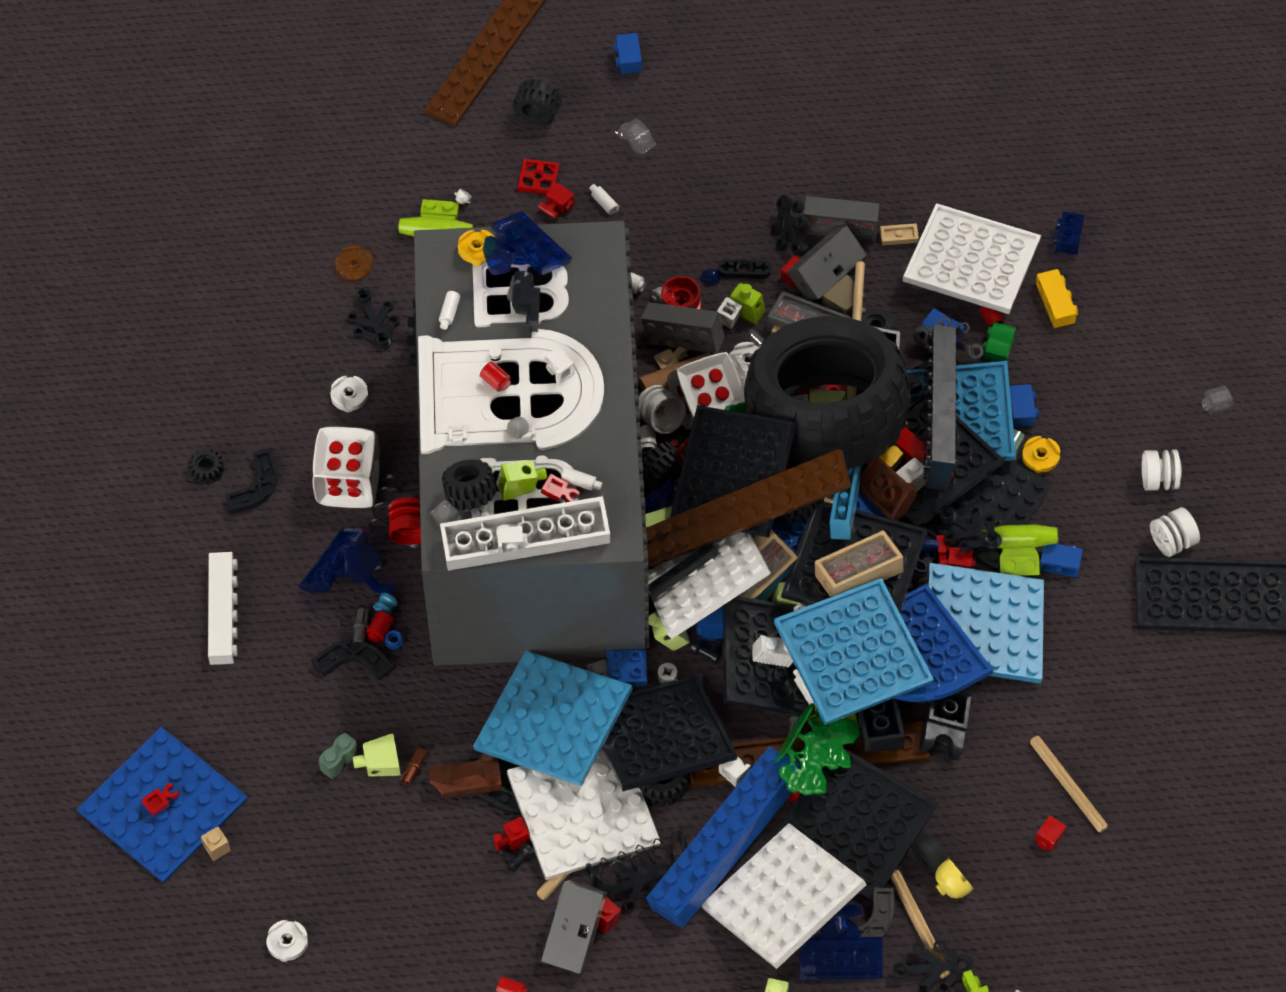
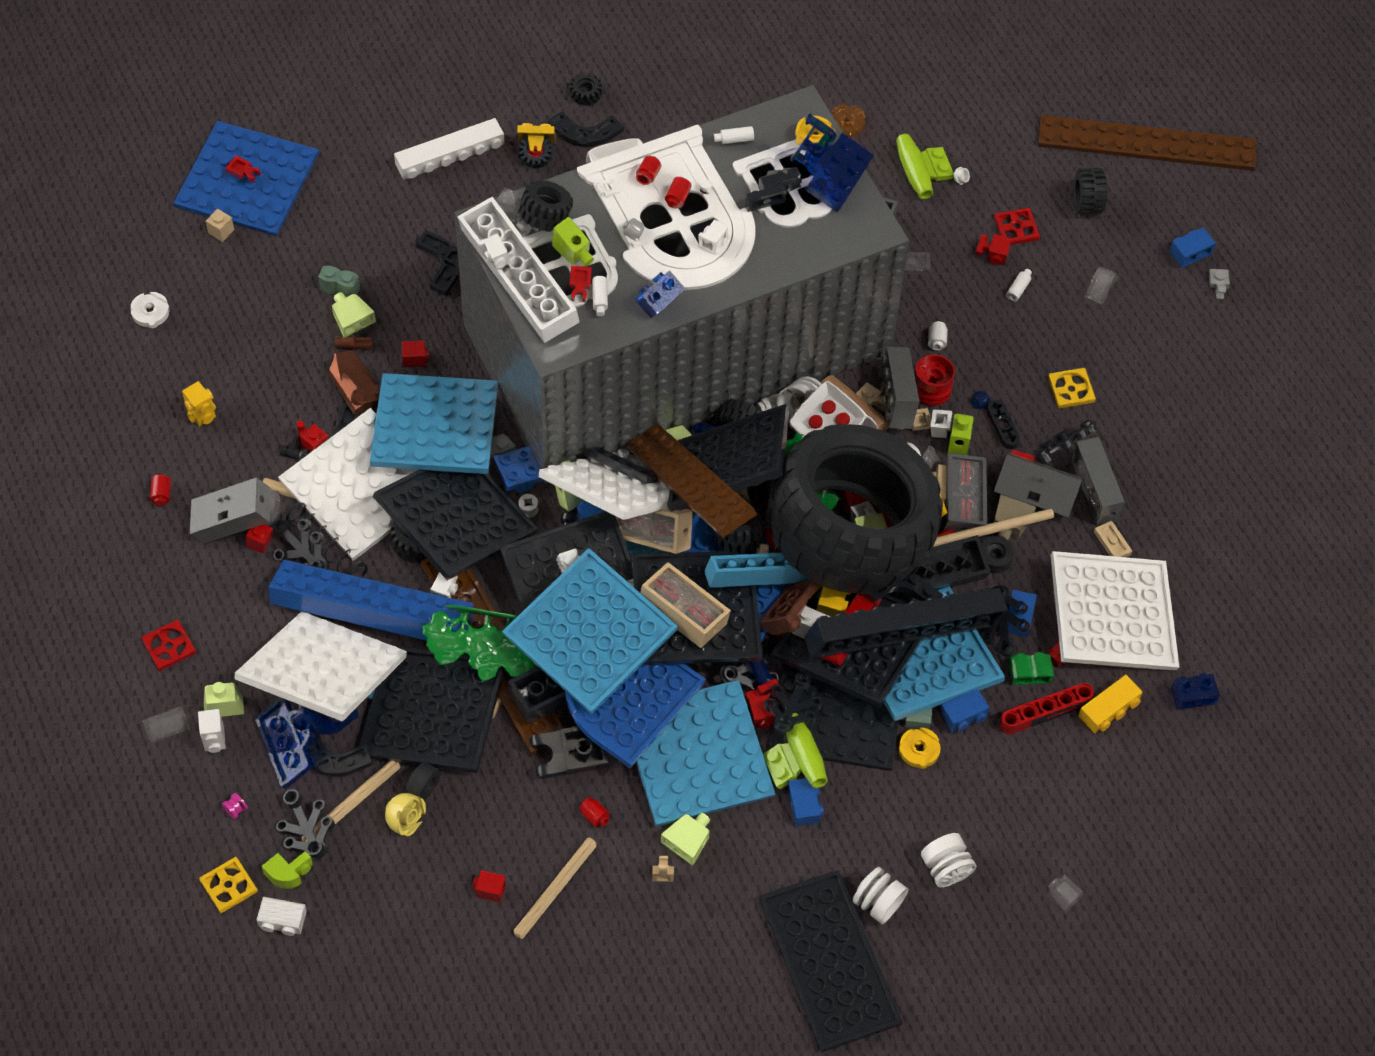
camera: 65 degrees right, 0 degrees up
(257, 529) = (536, 143): none -> plate
(432, 922) = (199, 404): none -> yellow brick
(453, 716) = (414, 353): none -> red brick
(458, 391) = (648, 170): none -> red brick
(605, 428) = (660, 293): none -> clear blue brick
(668, 50) = (1220, 280): none -> light grey plate
(739, 217) = (1062, 402): none -> yellow piece
(1008, 726) = (594, 812): none -> red brick
(1042, 338) = (1053, 702): none -> red beam
(1061, 661) = (687, 837): none -> yellowish green torso
(1087, 690) = (663, 871): none -> tan plate

